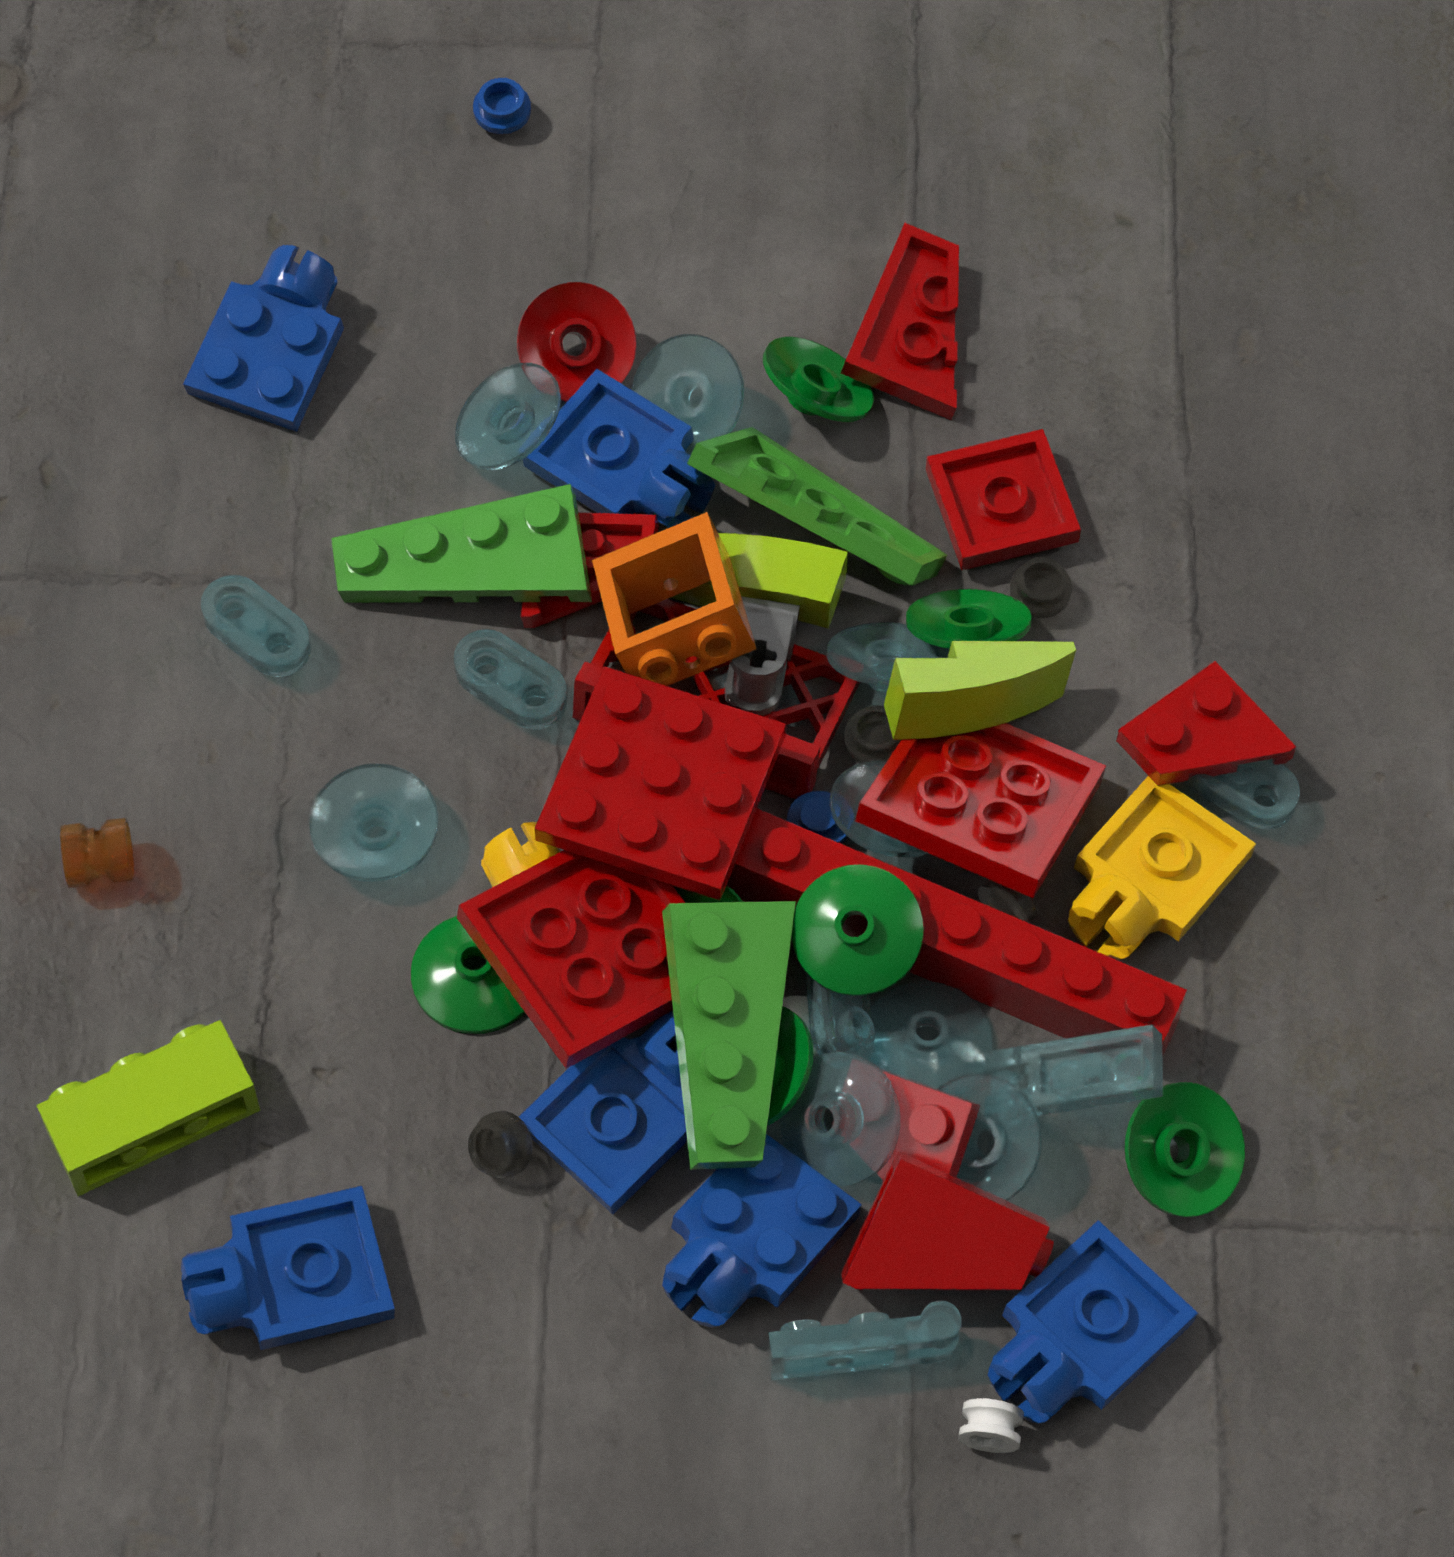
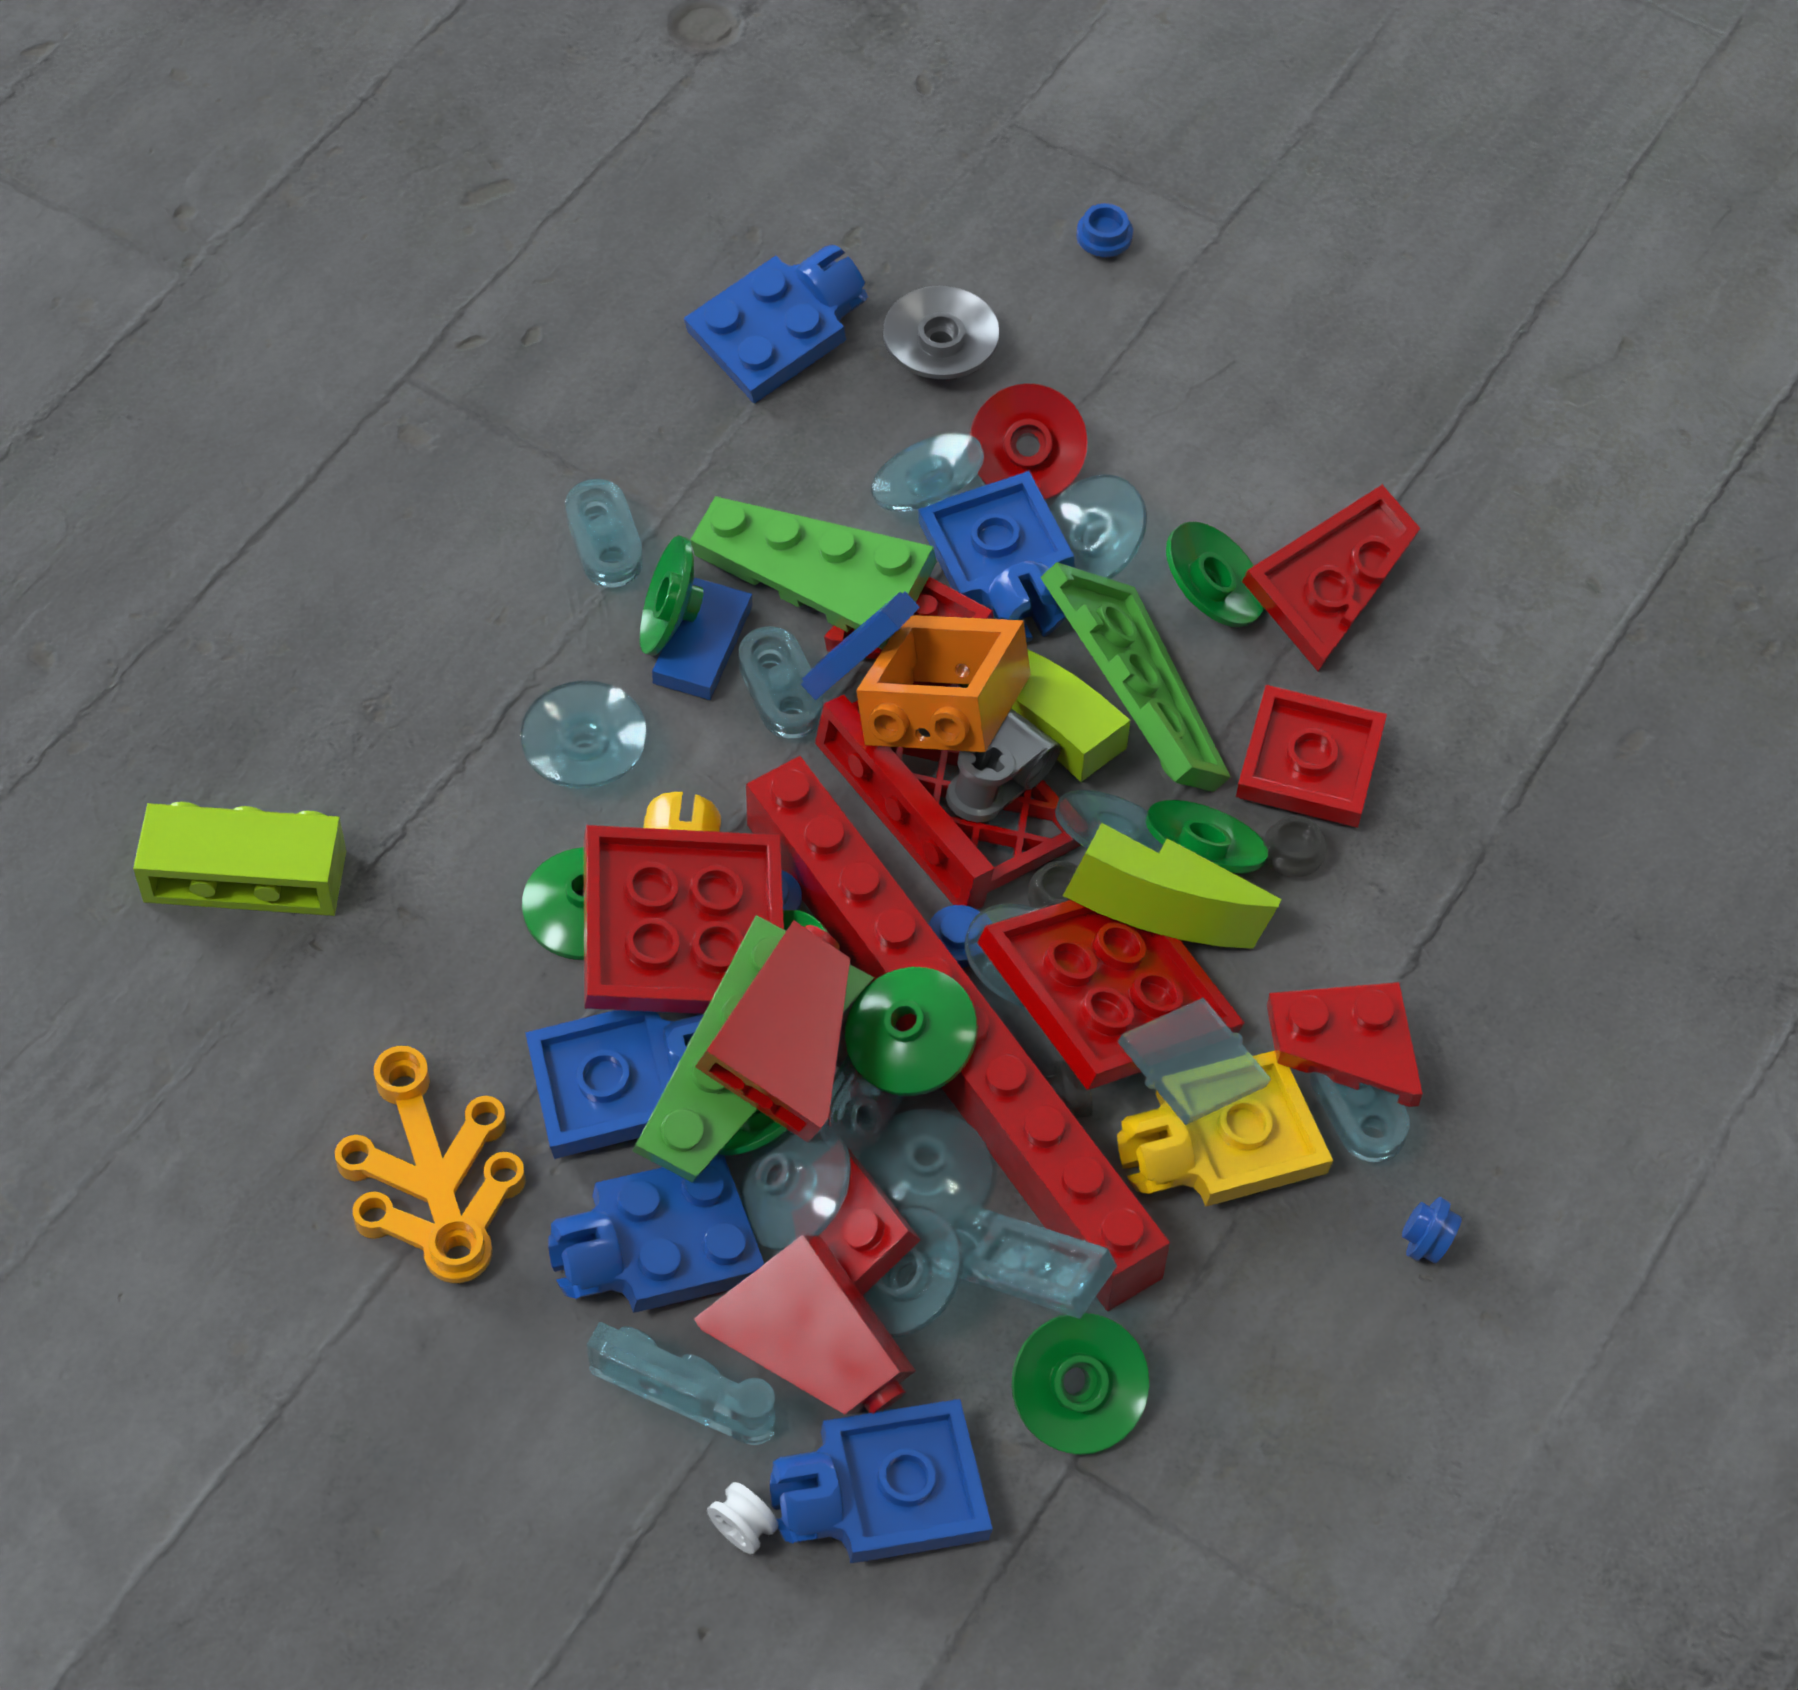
camera: 30 degrees right, 5 degrees down
(95, 852) = (347, 640): clear orange wheel -> none
(292, 1272) = (257, 1052): blue plate -> none
(363, 655) = (670, 596): none -> green dish
(410, 676) = (701, 649): none -> blue tile
(425, 259) = (941, 332): none -> flat silver dish
(500, 1145) = (498, 1047): clear smoke plate -> none
(520, 1291) = (433, 1177): none -> light orange plant
(574, 609) = (859, 644): none -> blue tile
(661, 782) = (827, 817): red plate -> none
(769, 991) = (786, 1032): none -> red slope
(1099, 822) = (1194, 1060): none -> clear light blue piece
(1369, 858) = (1431, 1230): none -> blue plate

